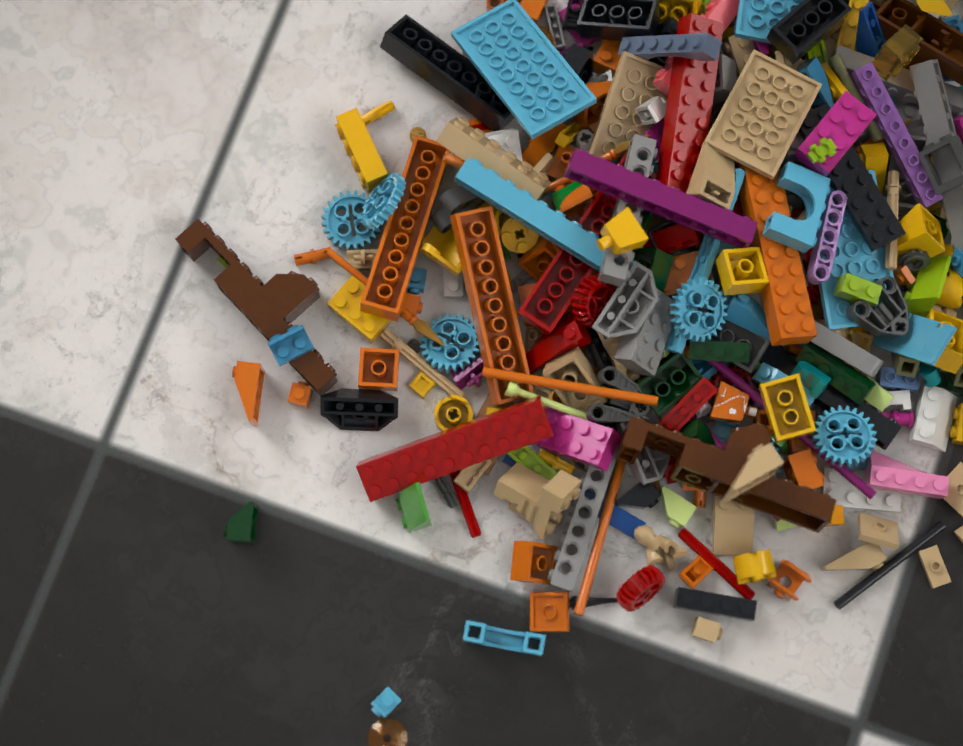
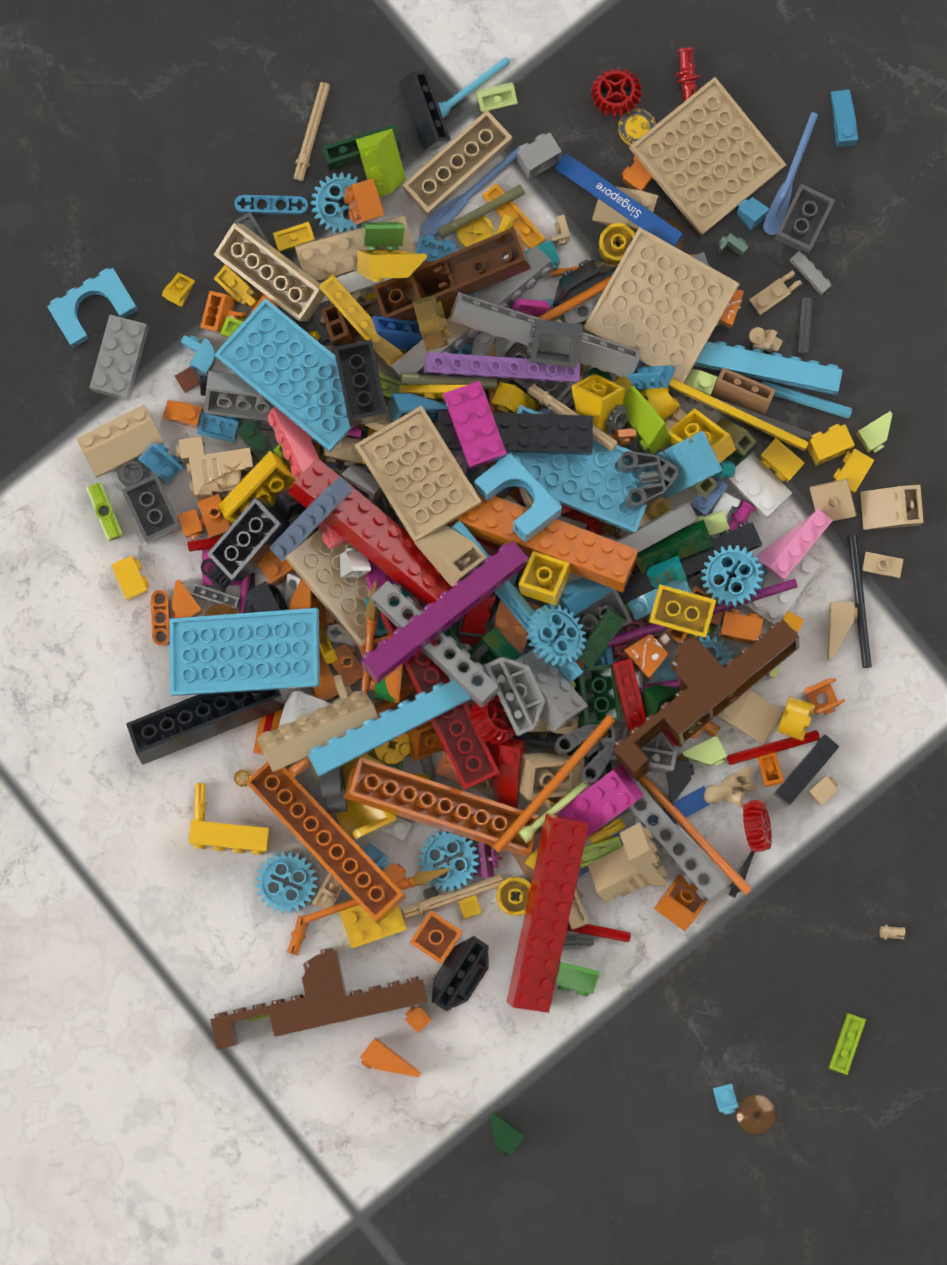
camera: 55 degrees left, 5 degrees up
(290, 345) = (375, 1003): dark azure bracket -> none
(383, 201) = (292, 847): medium azure gear -> none
(504, 639) = (736, 960): medium azure arch -> none
(549, 611) = (731, 914): orange tile -> none
(622, 234) = (458, 665): yellow torso -> none
(759, 467) = (720, 670): tan slope -> none
(819, 153) = (485, 453): lime piece -> none
(832, 231) = (568, 490): lavender beam -> none
(856, 289) = (617, 488): lime brick -> none
(878, 531) = (826, 594): tan plate -> none

